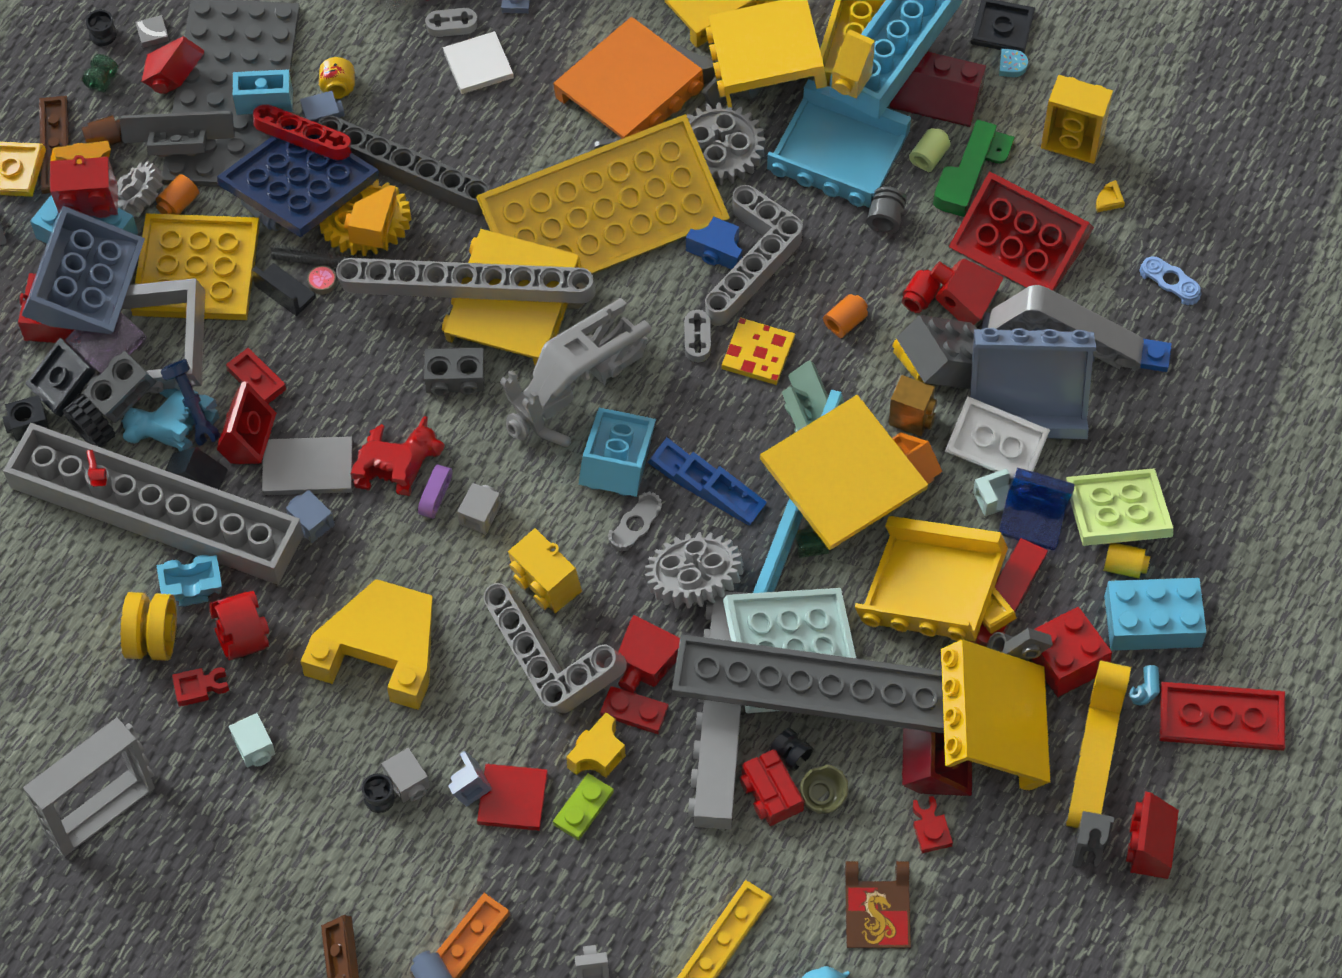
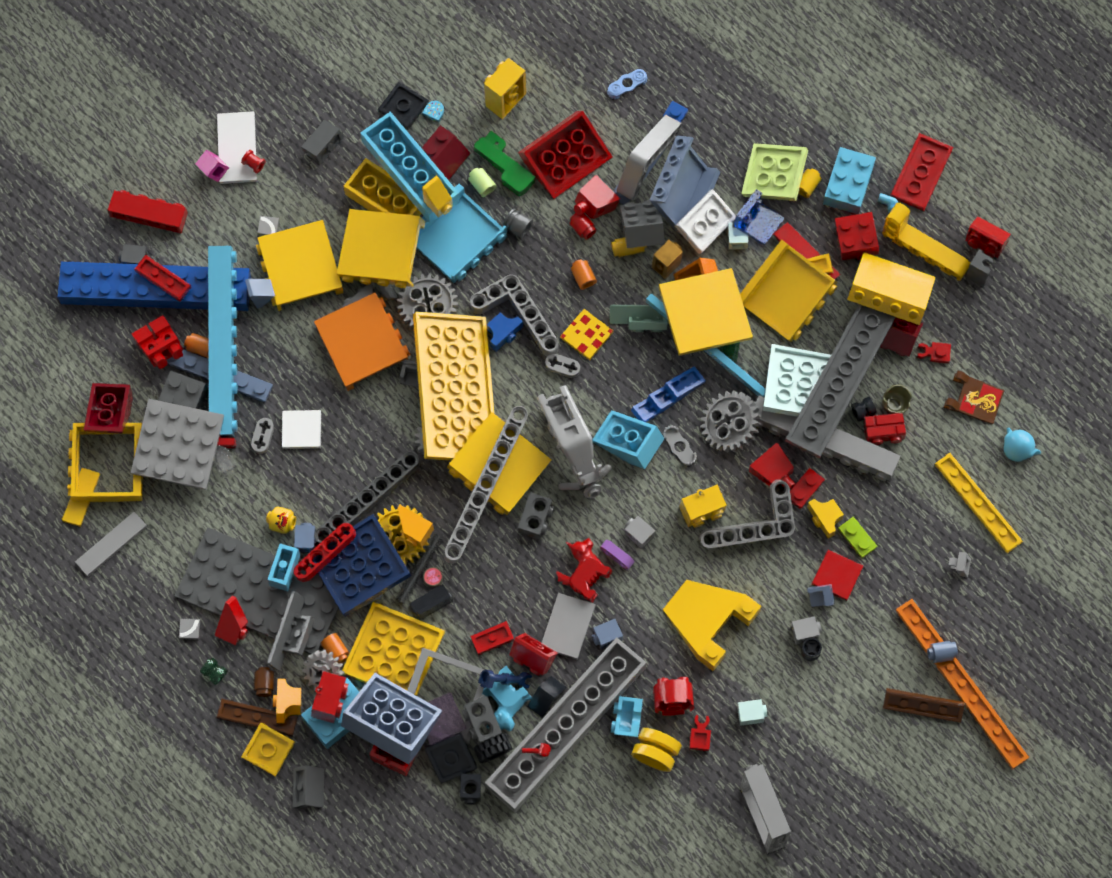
camera: 70 degrees left, 10 degrees up
(101, 27) = (176, 656): black wheel -> none
(1025, 645) = (850, 261): dark grey plate -> none
(1109, 197) = (555, 94): yellow tile -> none

